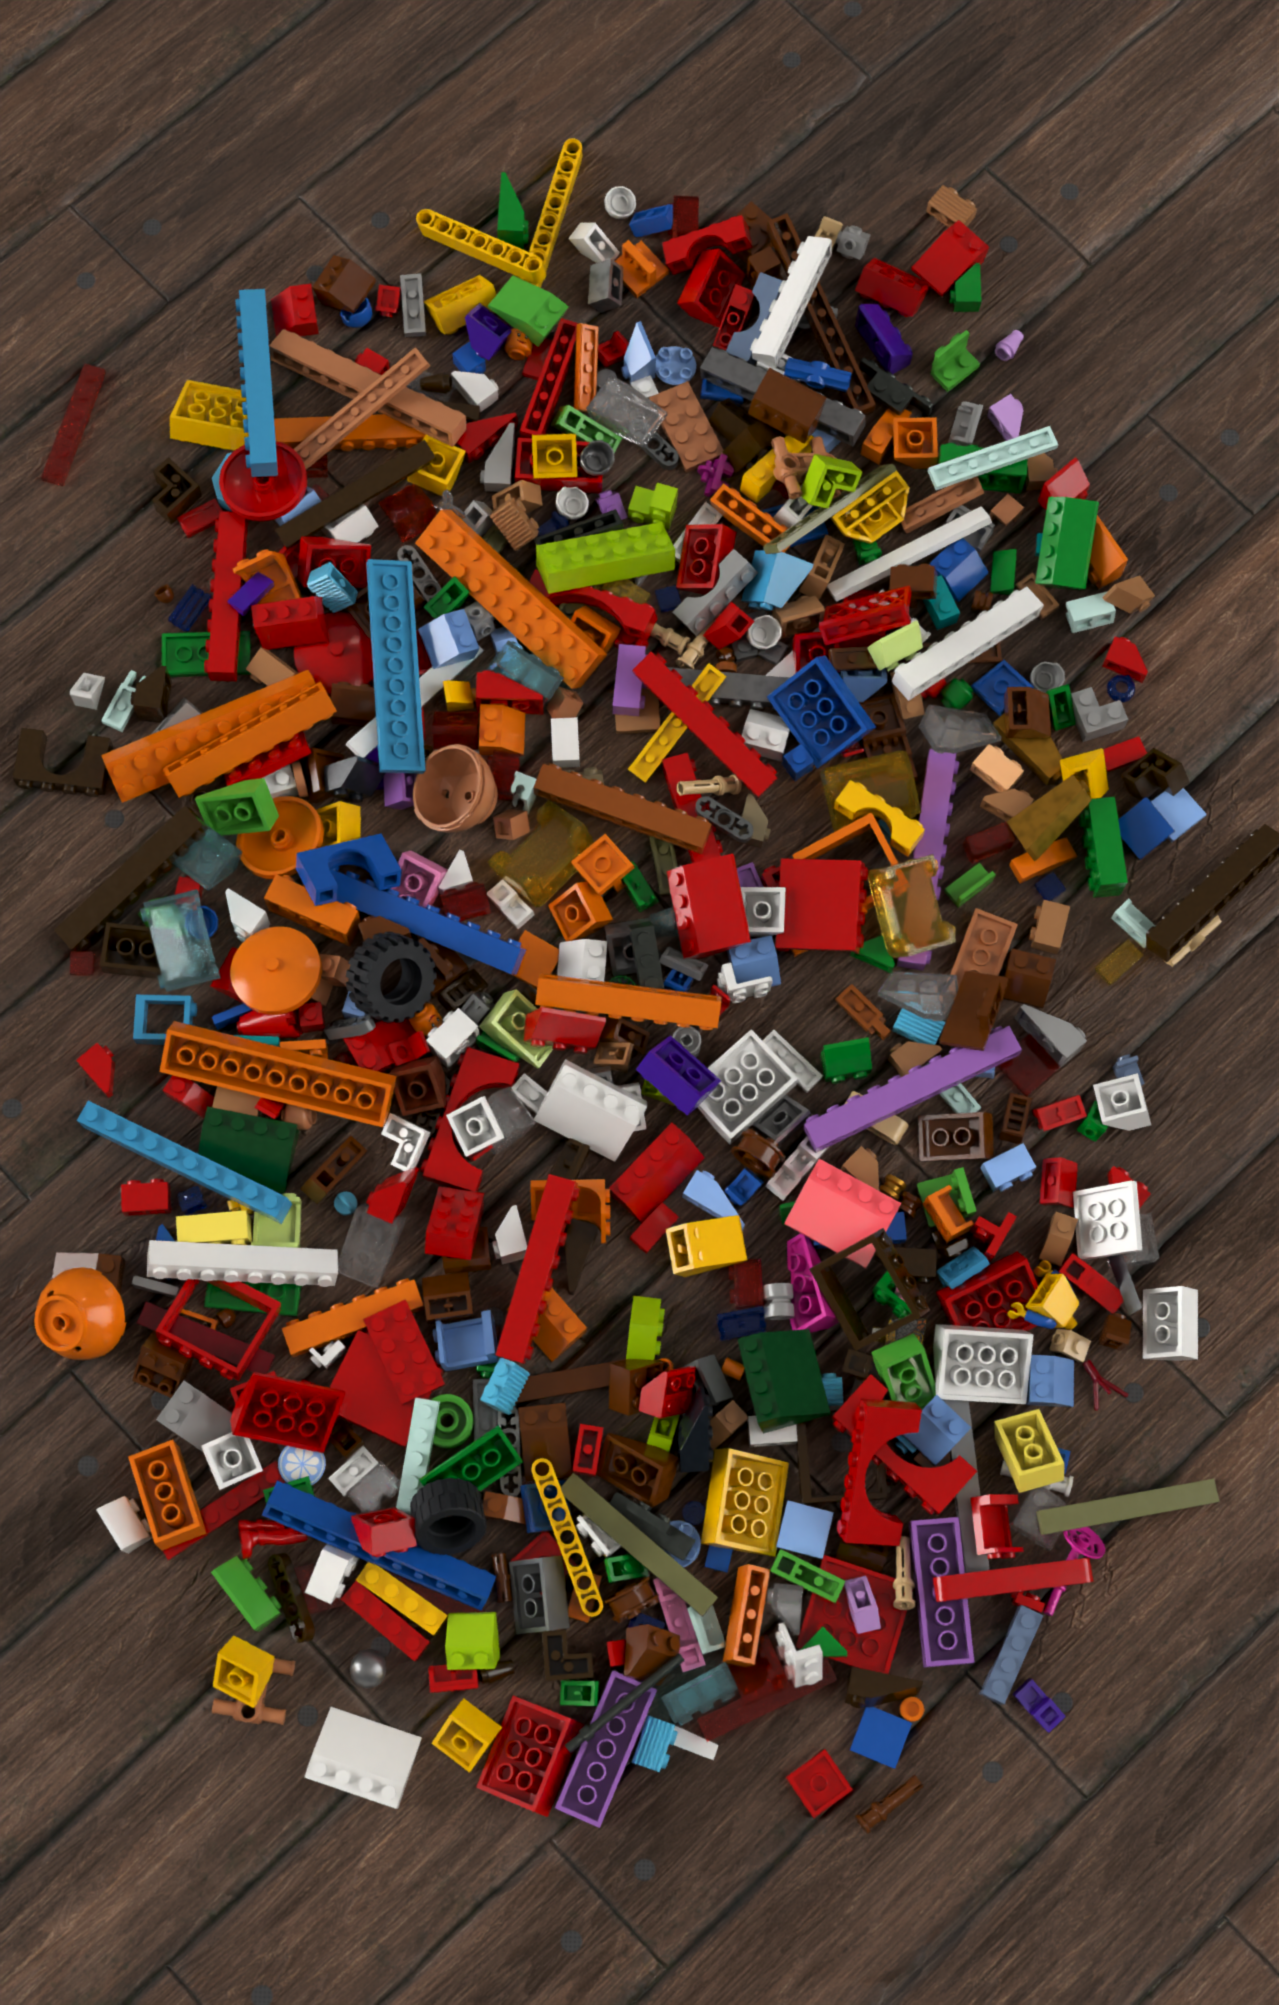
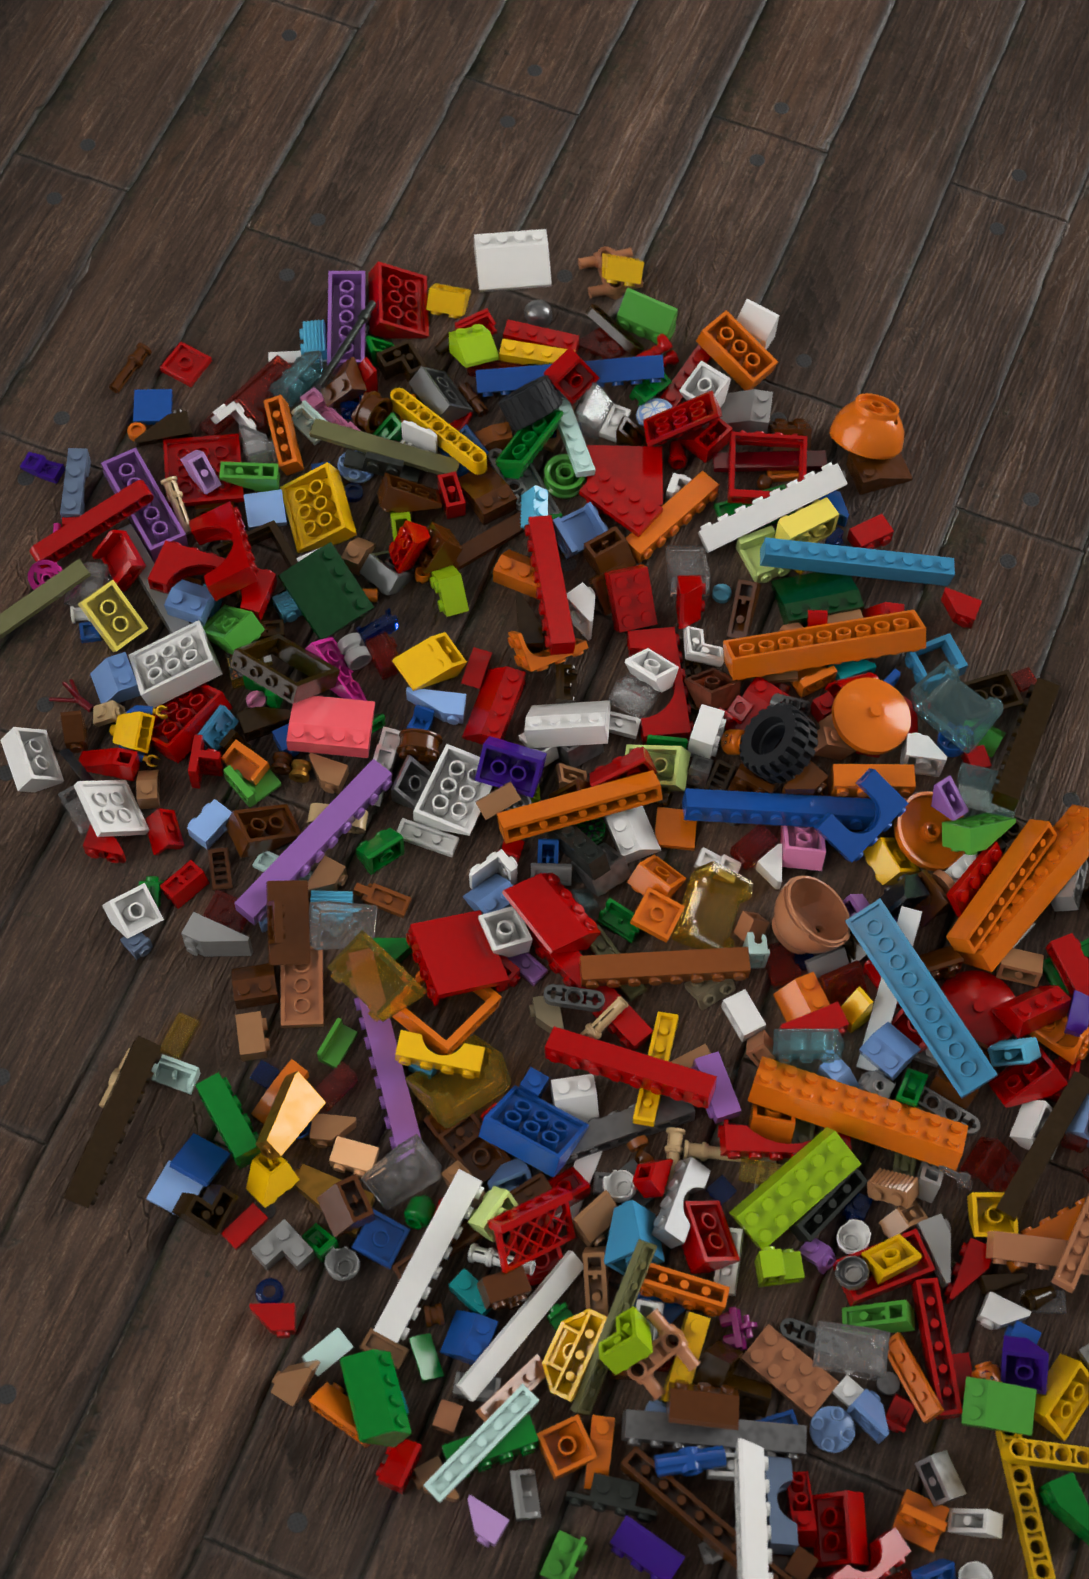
camera: 155 degrees right, 10 degrees down
(248, 847) = (948, 799): none -> medium lavender slope
(330, 1573) = (594, 343): white brick -> none
(694, 1435) = (374, 526): black slope -> none
(707, 1047) = (498, 800): none -> medium nougat tile
(828, 1644) = (218, 435): green slope -> none

